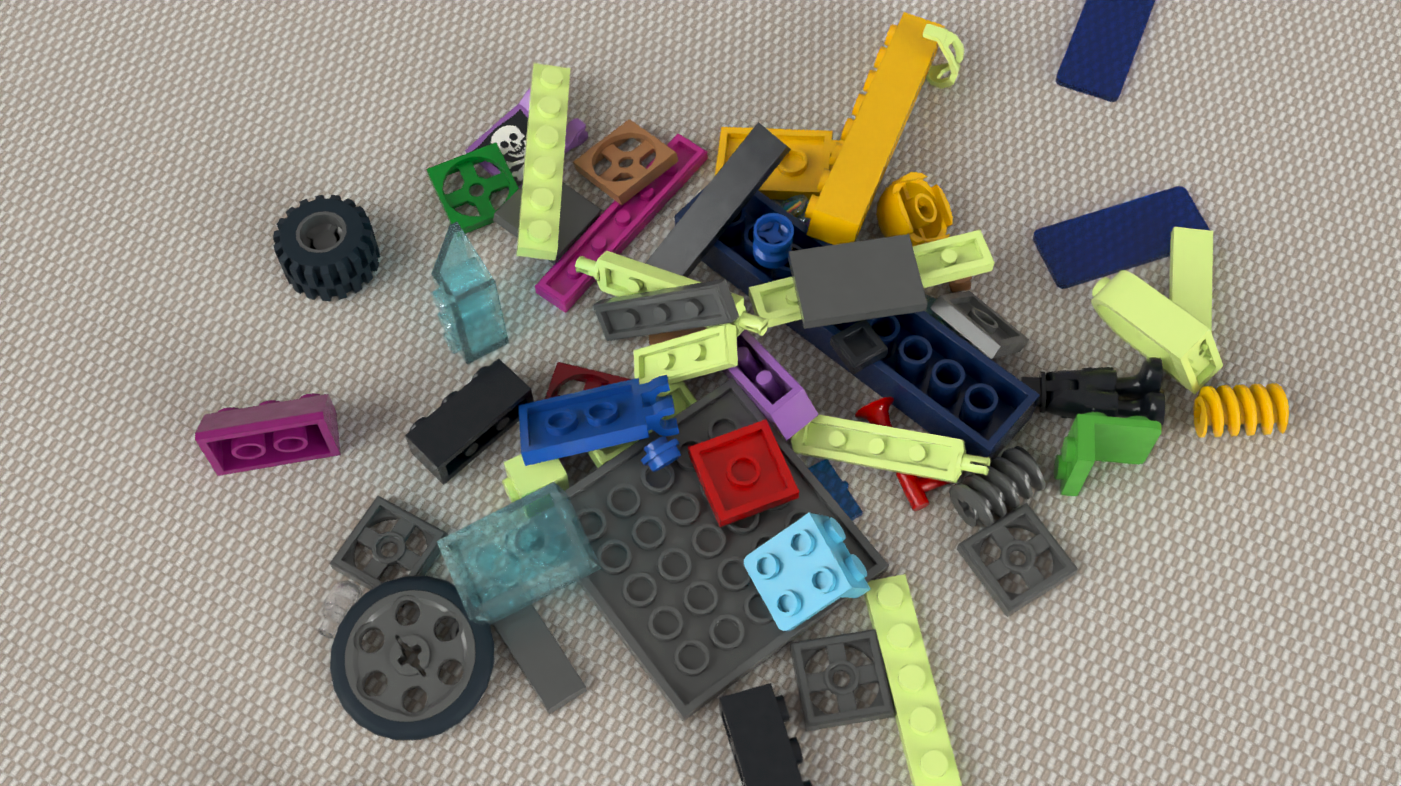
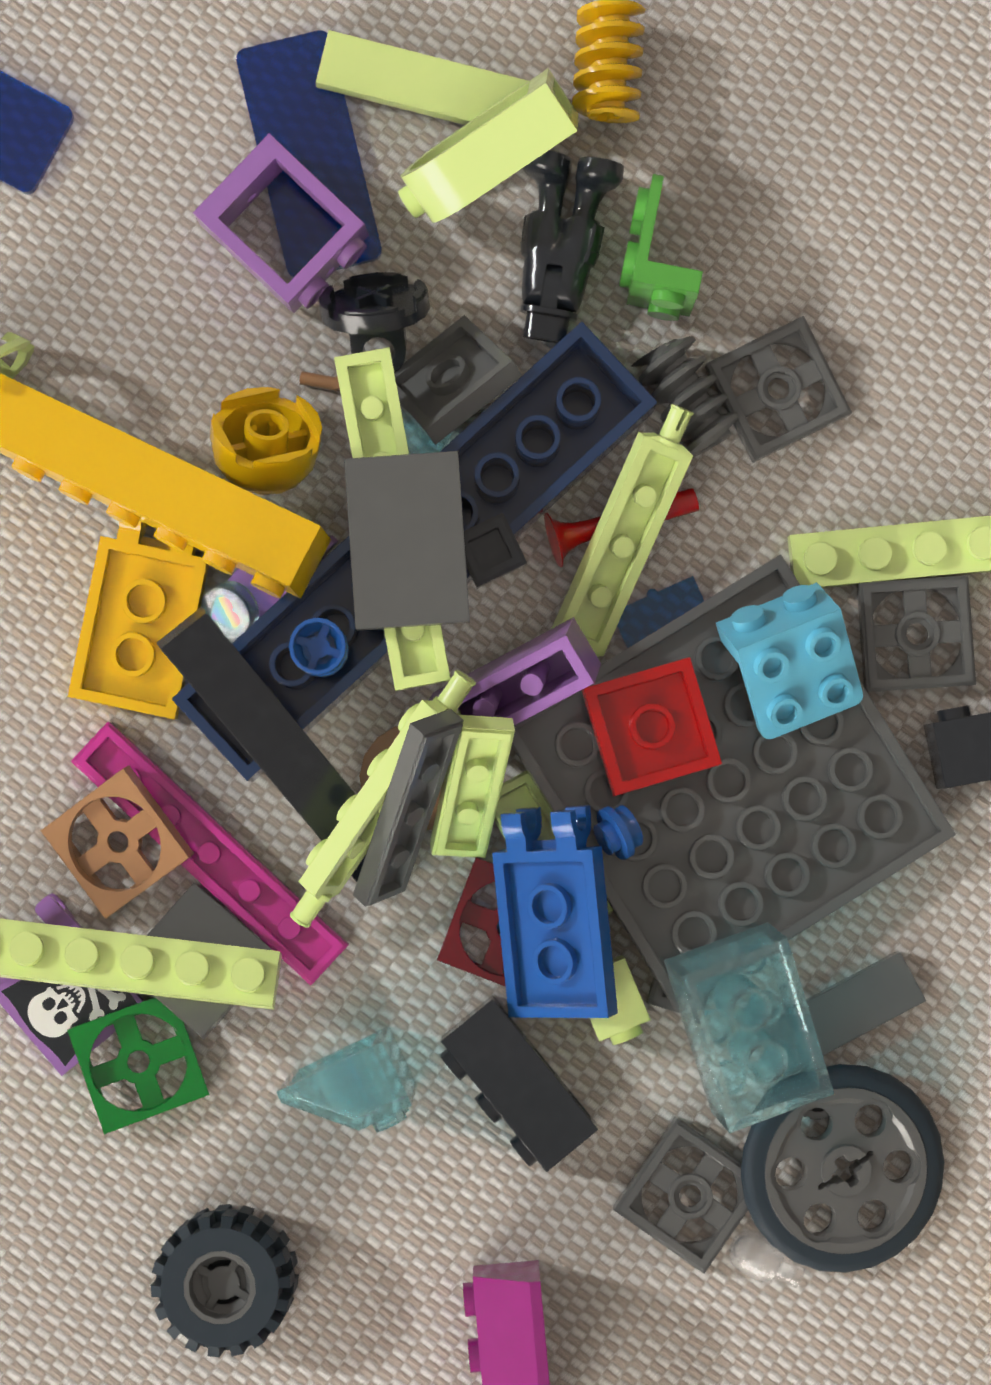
camera: 85 degrees left, 25 degrees up
(1017, 275) = (375, 307): none -> black tile
(1083, 187) = (244, 186): none -> medium lavender window

